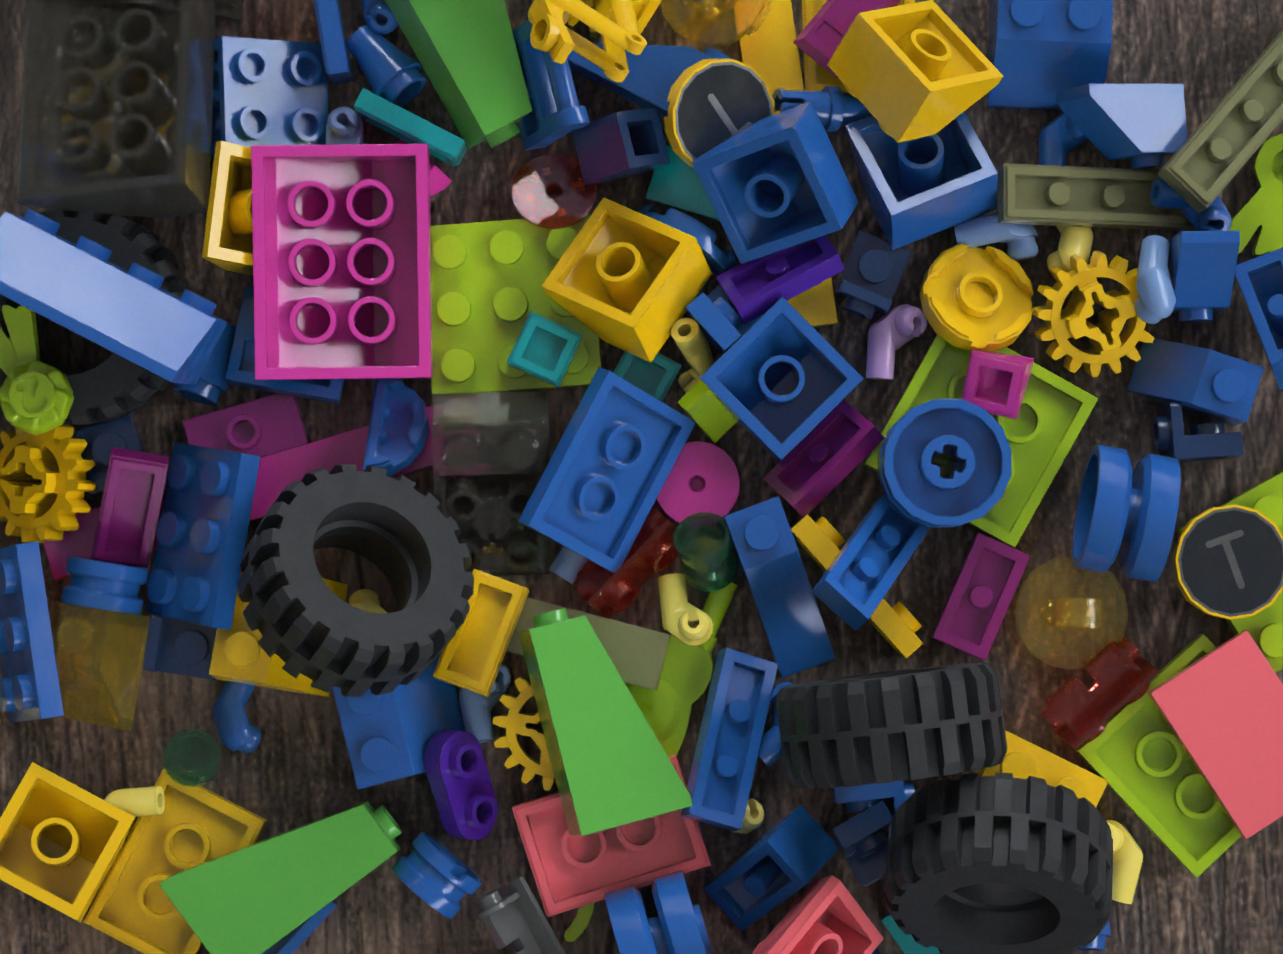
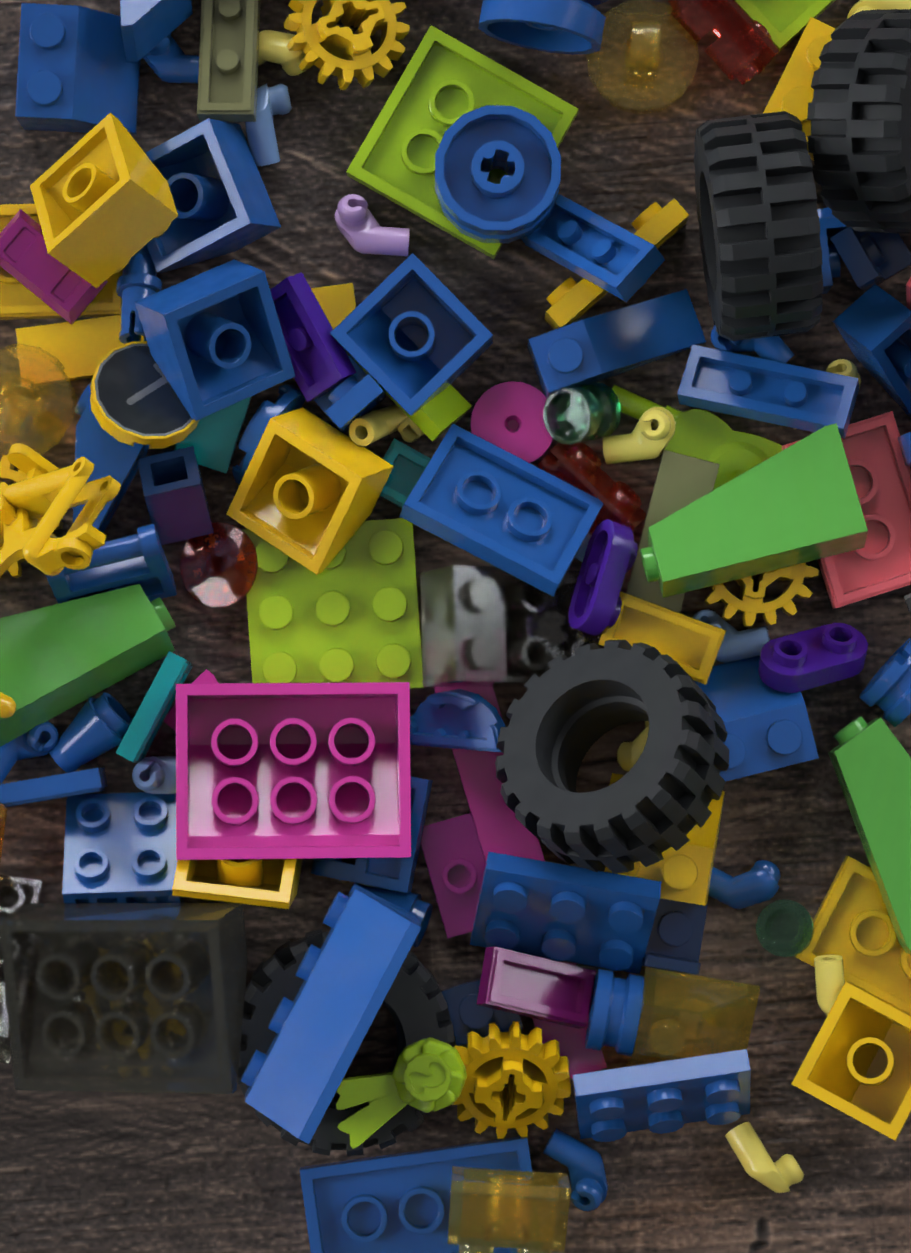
camera: 85 degrees left, 0 degrees up
(544, 349) = (379, 572): teal tile -> none
(557, 576) = (601, 576): none -> dark purple plate
(823, 458) = (491, 296): magenta plate -> none
(870, 276) = (307, 249): dark blue bracket -> none
(977, 298) = (330, 143): yellow tile -> none
(980, 596) = (626, 143): magenta plate -> none
(997, 382) = (415, 123): dark pink slope -> none

